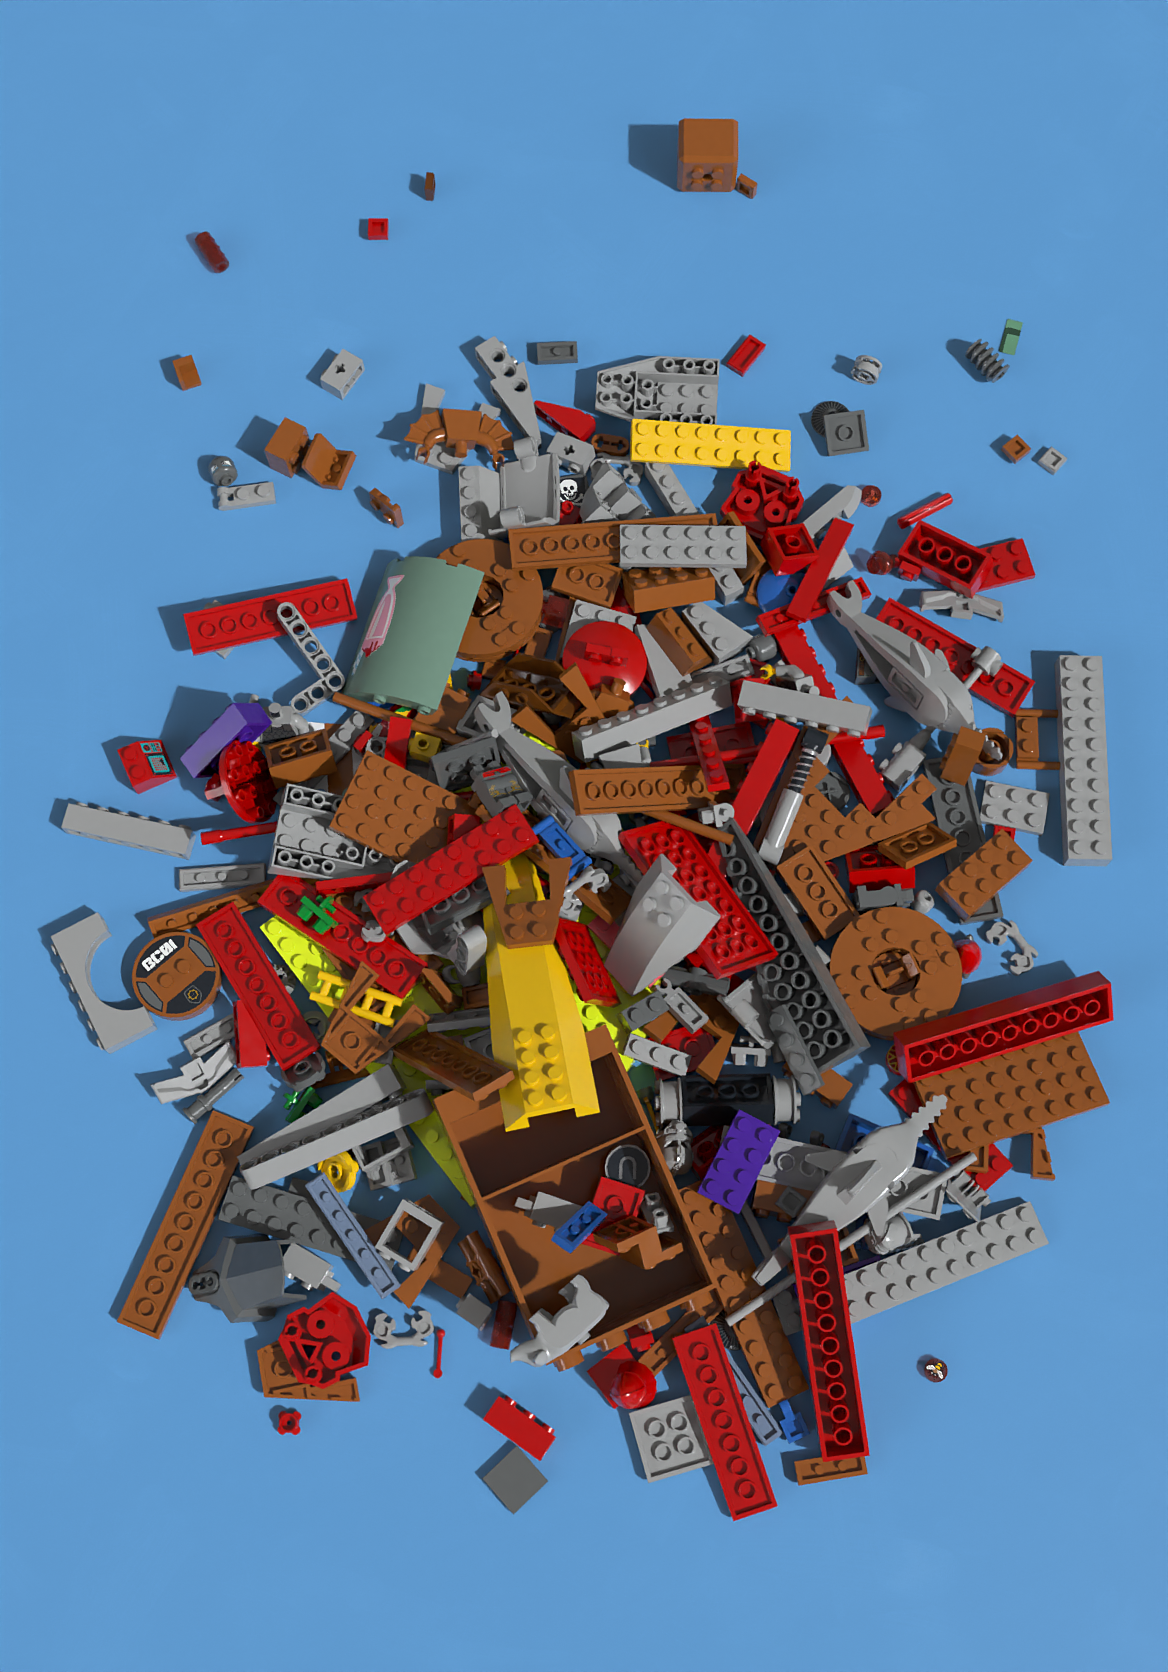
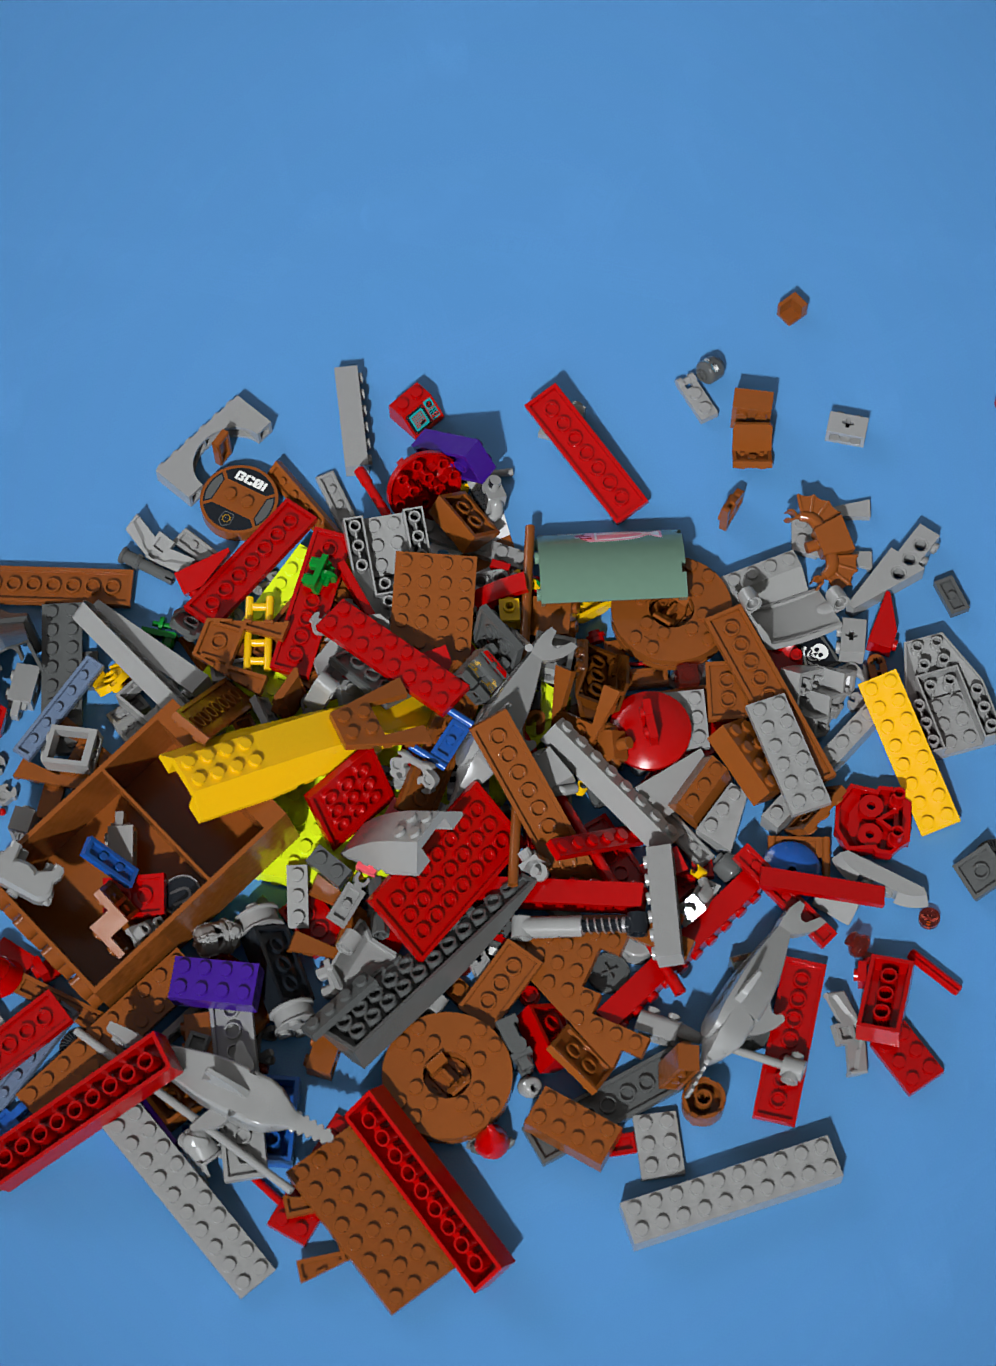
camera: 70 degrees right, 10 degrees down
(107, 971) = (222, 447): none -> dark orange tile
(211, 252) = (919, 285): clear red axle -> none
(312, 658) = (559, 500): light grey beam -> none
(788, 548) = (831, 852): red slope -> none
(935, 1370) = (93, 1232): tile -> none
(969, 1200) = (256, 1203): light grey hinge -> none
(1022, 962) = (528, 1168): light grey helmet -> none
(1027, 739) = (735, 1137): dark orange plate -> none

